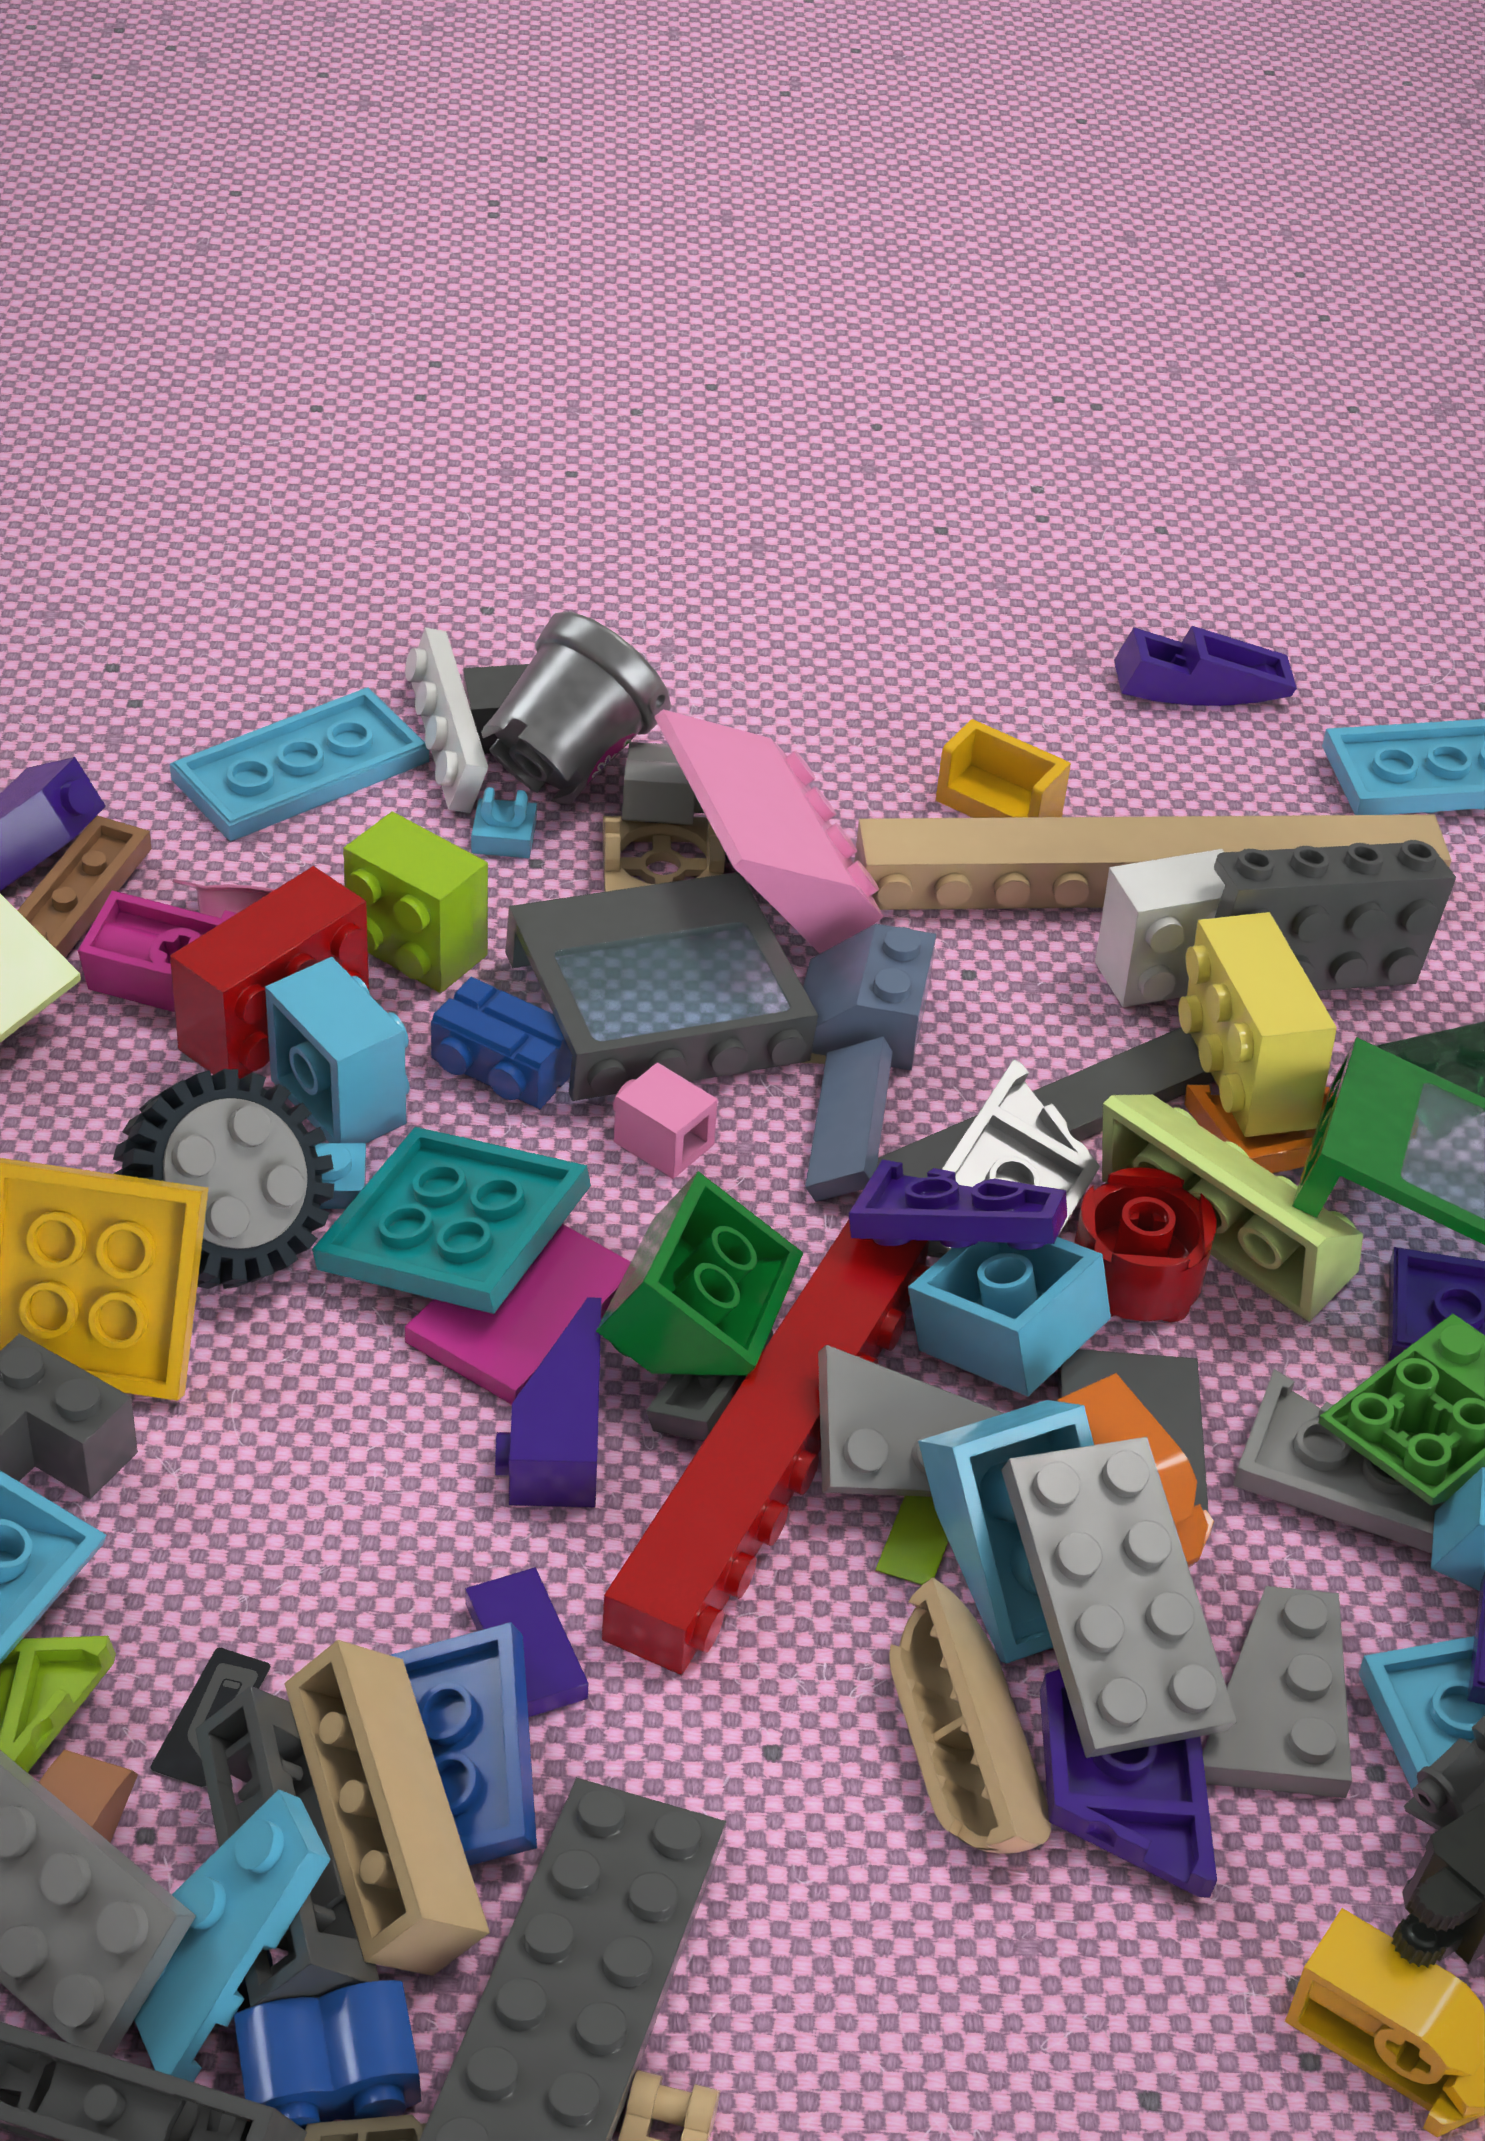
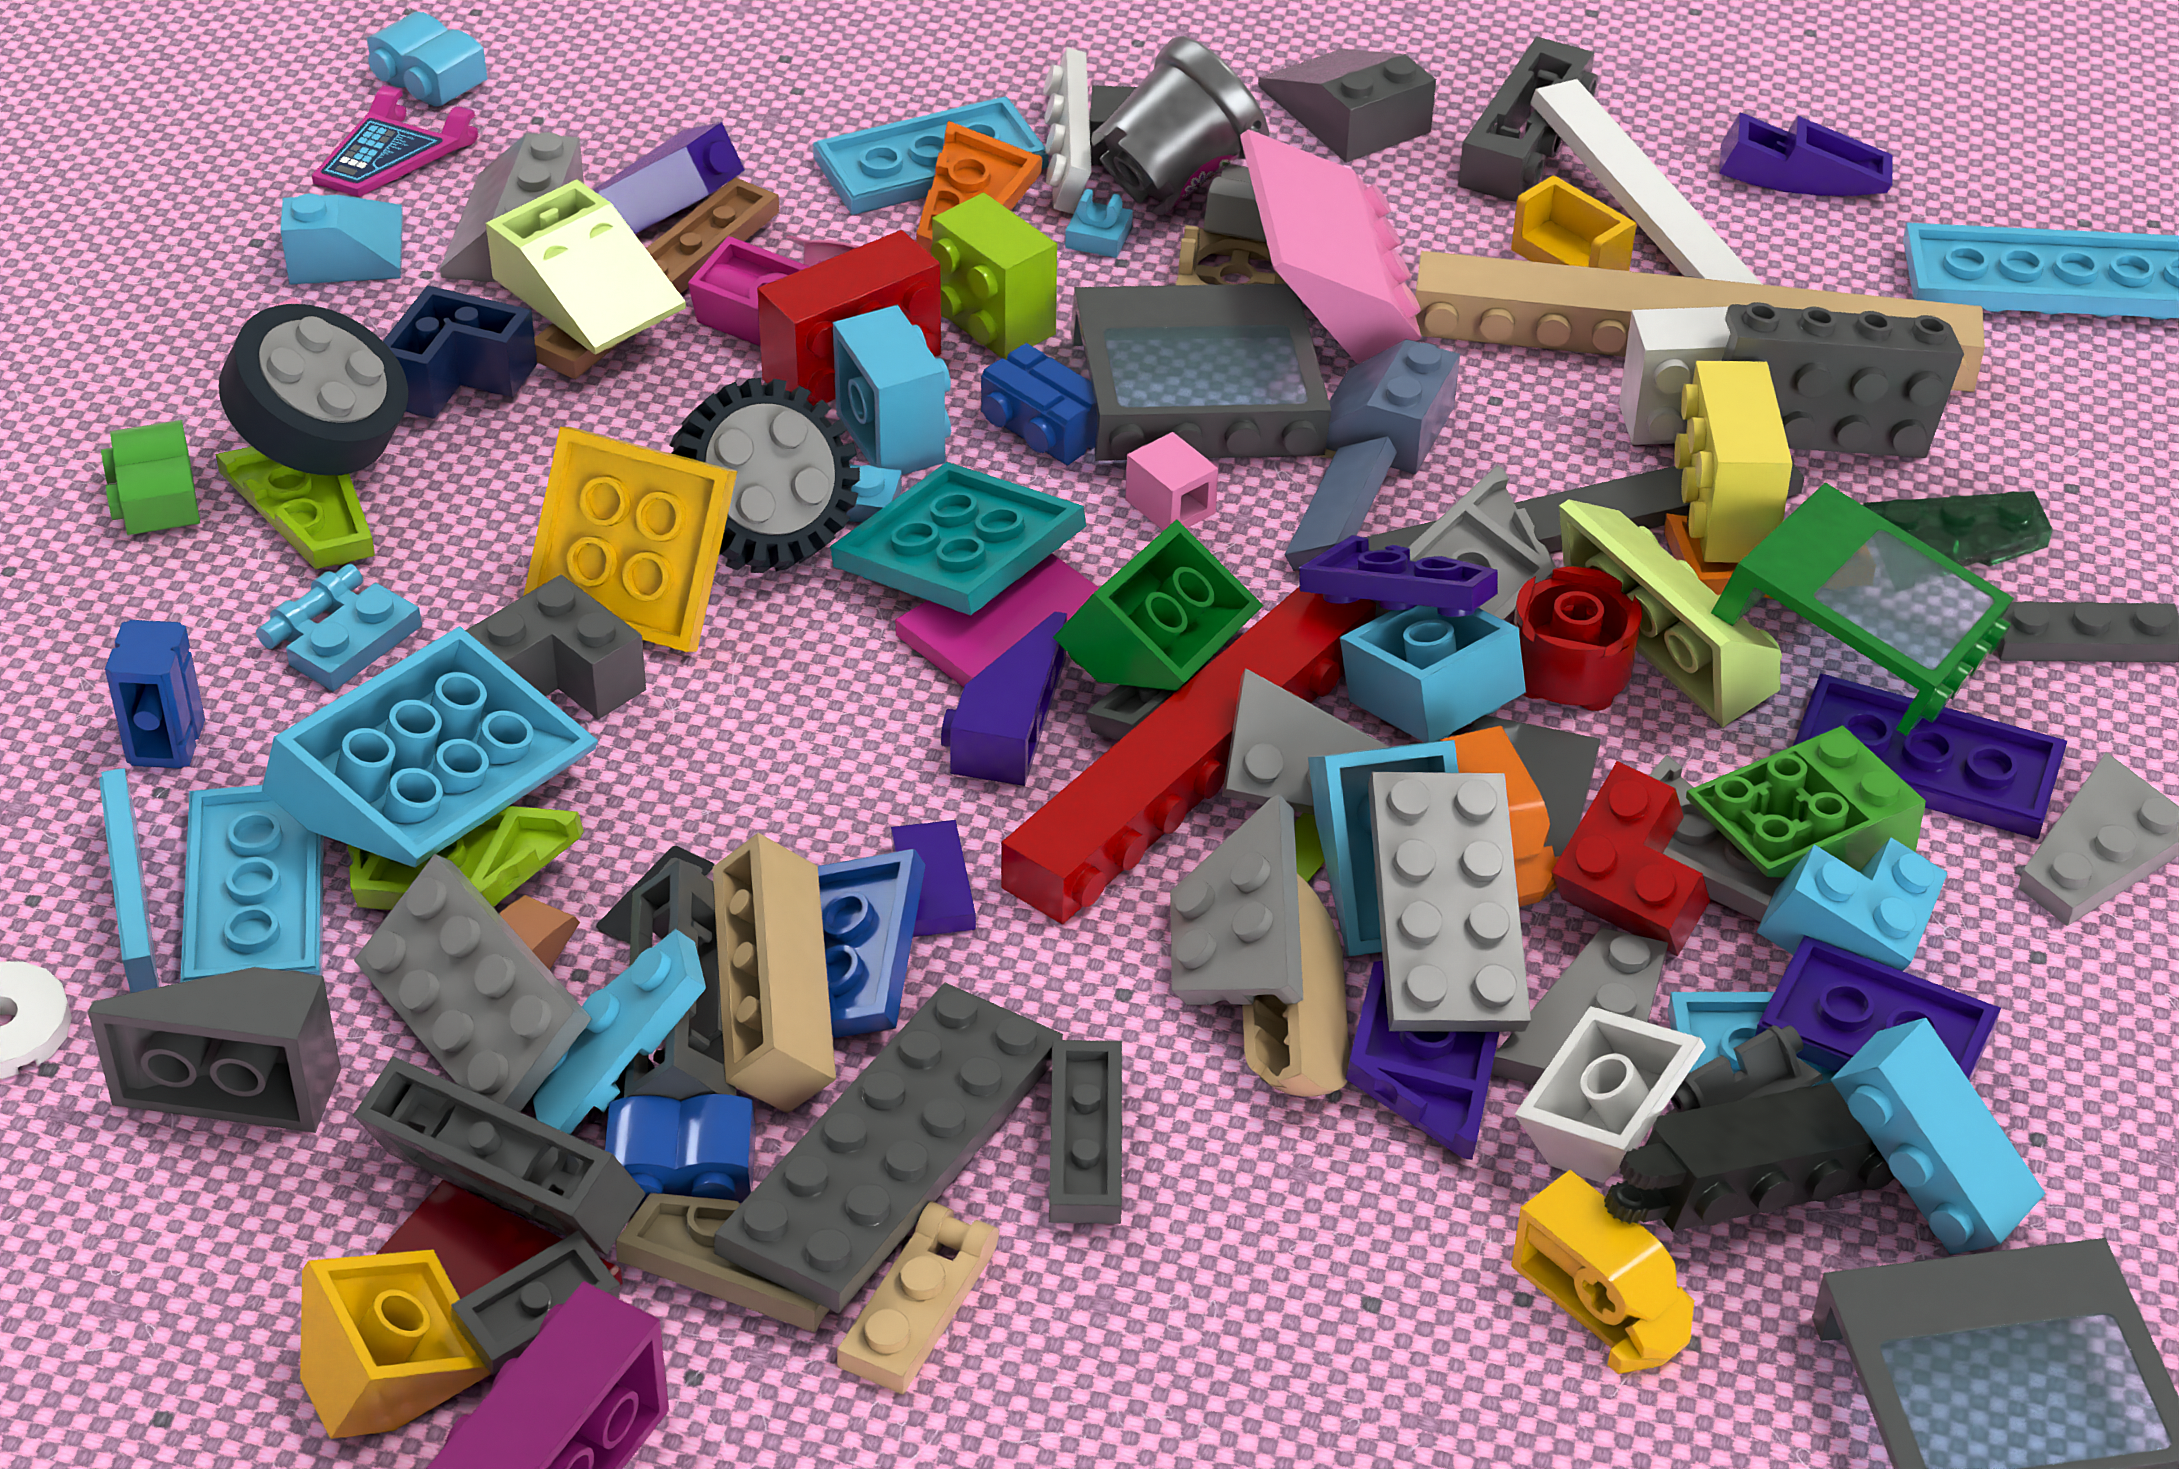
camera: 15 degrees right, 0 degrees up
(356, 788) = (975, 165): none -> orange wing
(734, 650) = (1356, 99): none -> dark grey slope
(785, 1945) = (1086, 1132): none -> dark grey plate
(889, 1646) = (1240, 916): none -> light grey wing
(896, 702) = (1500, 161): none -> dark grey brick
(1056, 719) = (1638, 184): none -> white tile
(1270, 1521) = (1619, 864): none -> red brick
(1356, 1804) = (1605, 1091): none -> white slope

